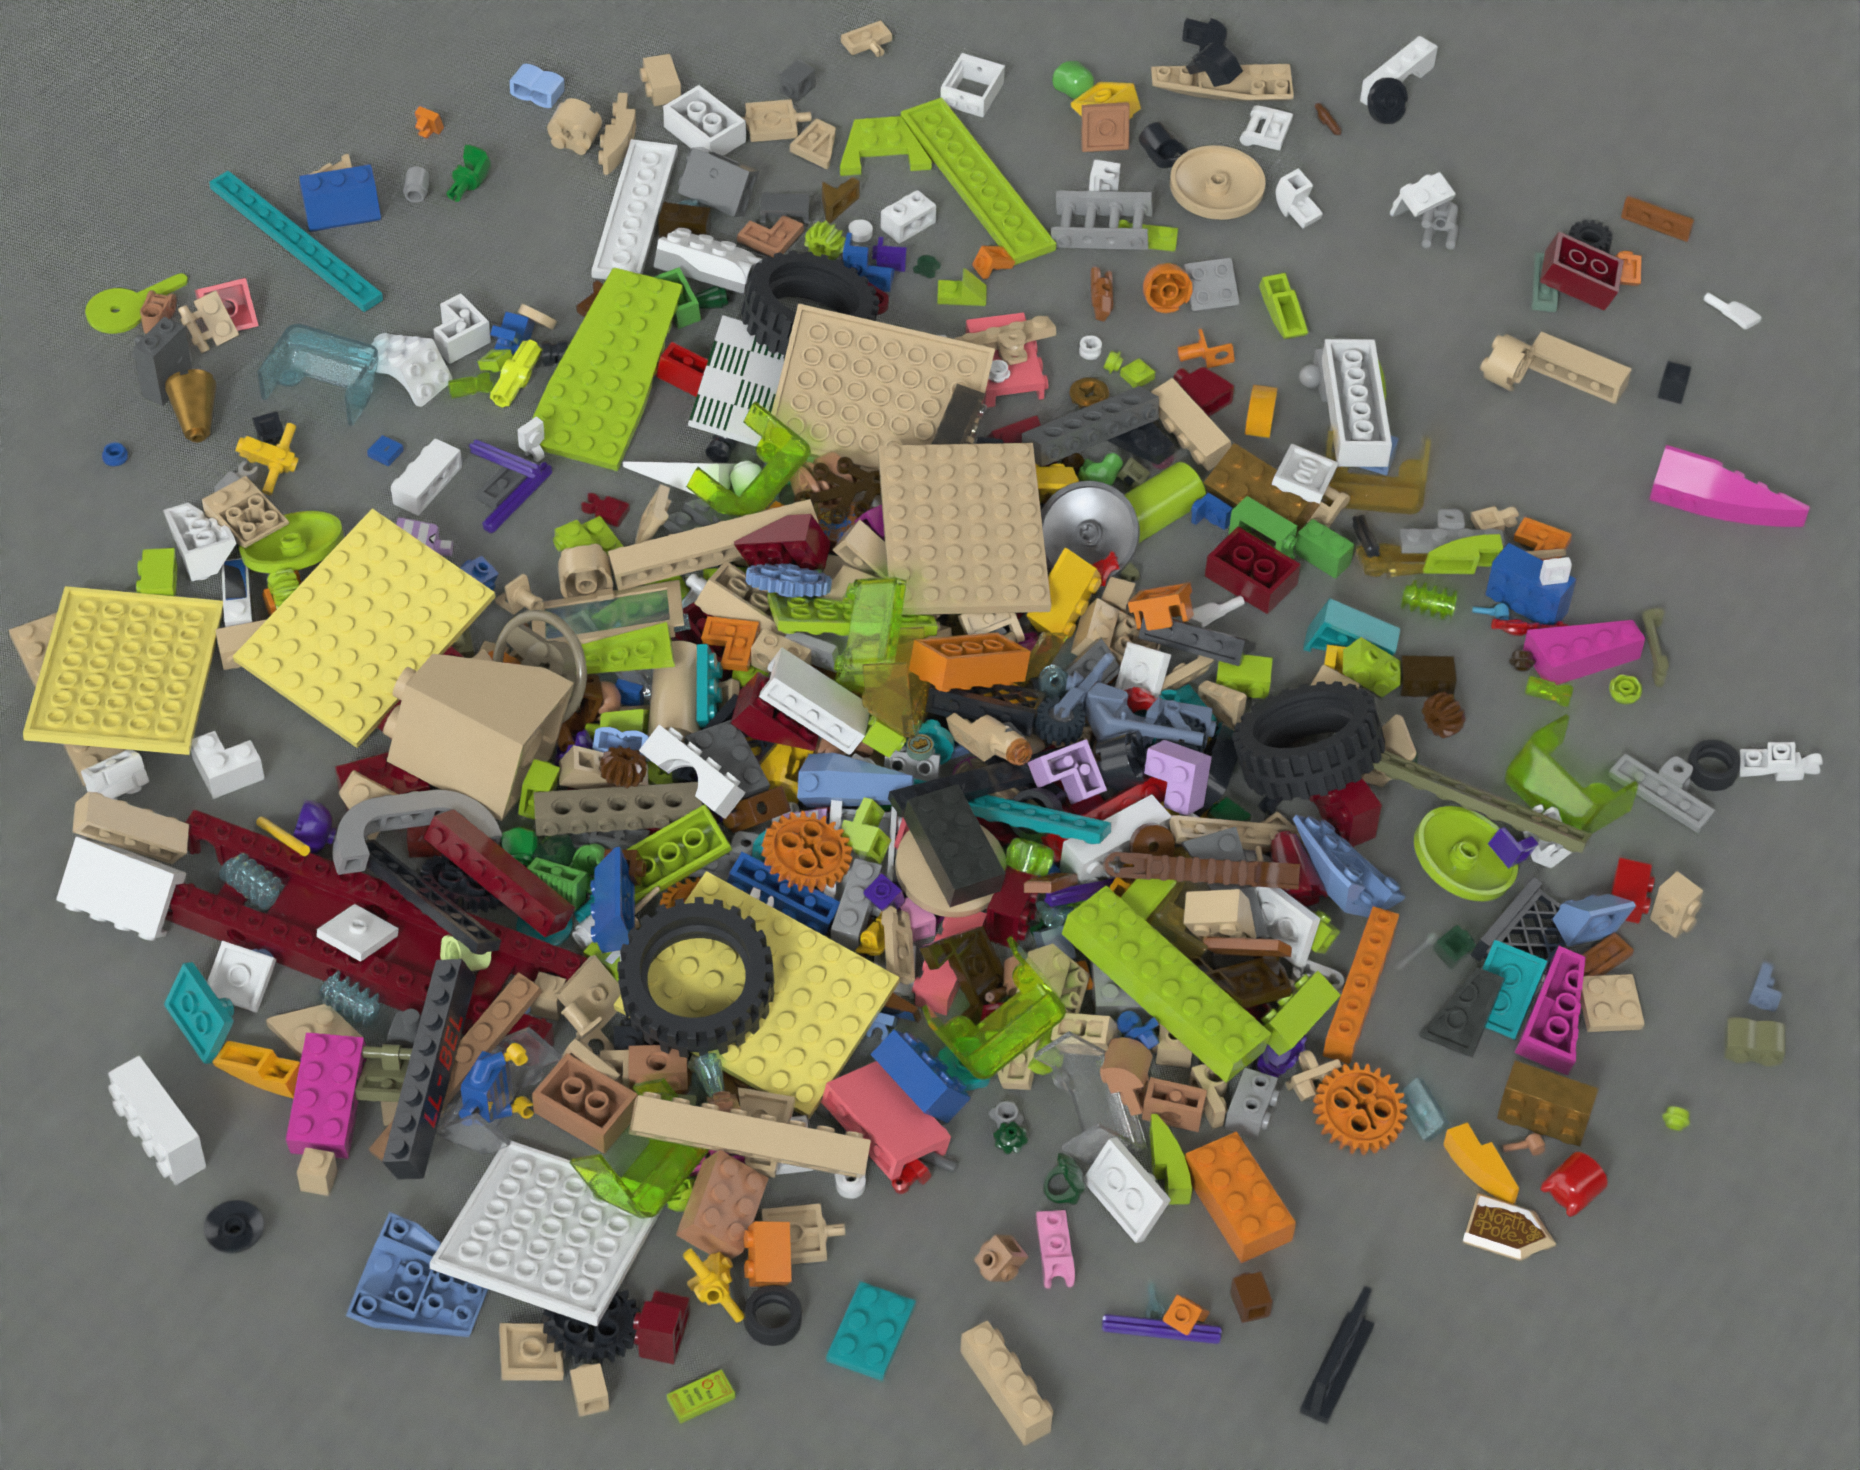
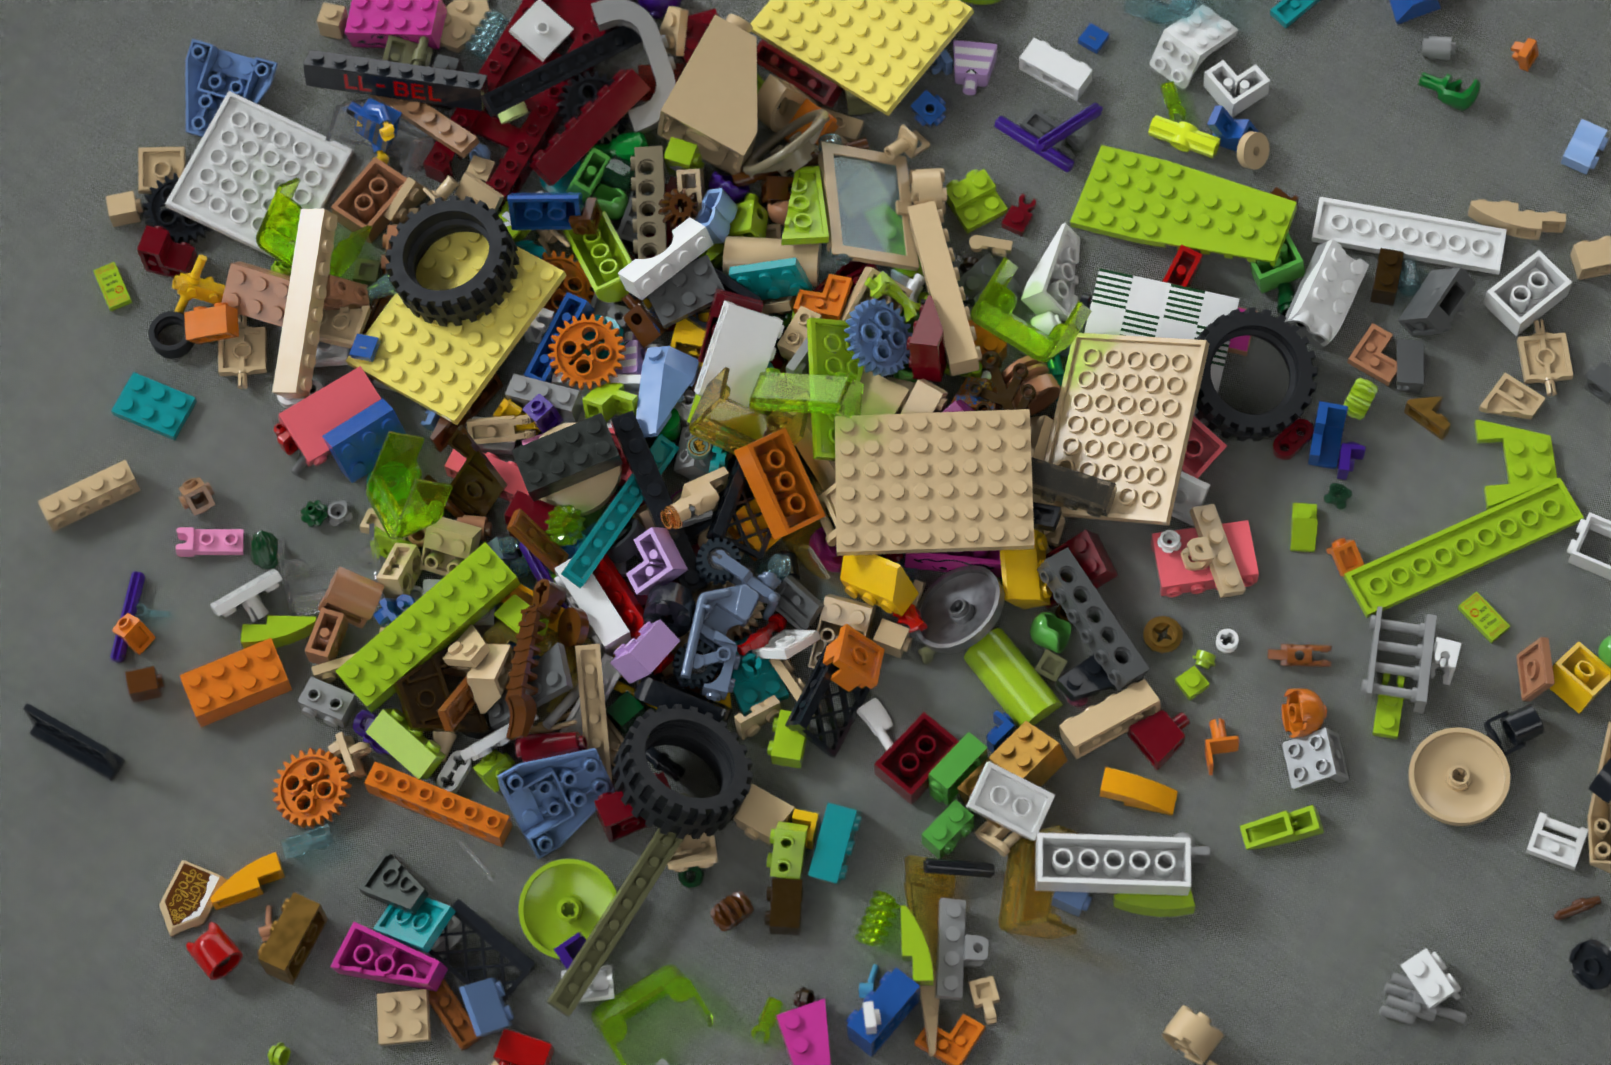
camera: 100 degrees right, 15 degrees up
(494, 360) = (1200, 119): lime plate -> none
(530, 437) = (1092, 146): white plate -> none
(553, 352) = (1211, 164): black wheel -> none
(574, 126) = (1515, 176): tan brick -> none
(735, 568) = (885, 285): none -> lime animal
(799, 1083) = (365, 347): none -> blue tile
(860, 230) = (1389, 437): white tile -> none
(908, 216) = (1405, 478): white brick -> none
(1047, 170) = (1483, 617): none -> lime tile
(1196, 932) = (468, 649): none -> tan wing
(1293, 198) = (1436, 855): white brick -> none
(1454, 946) = (467, 885): clear green brick -> none
(1519, 627) = (845, 1004): red piece -> none

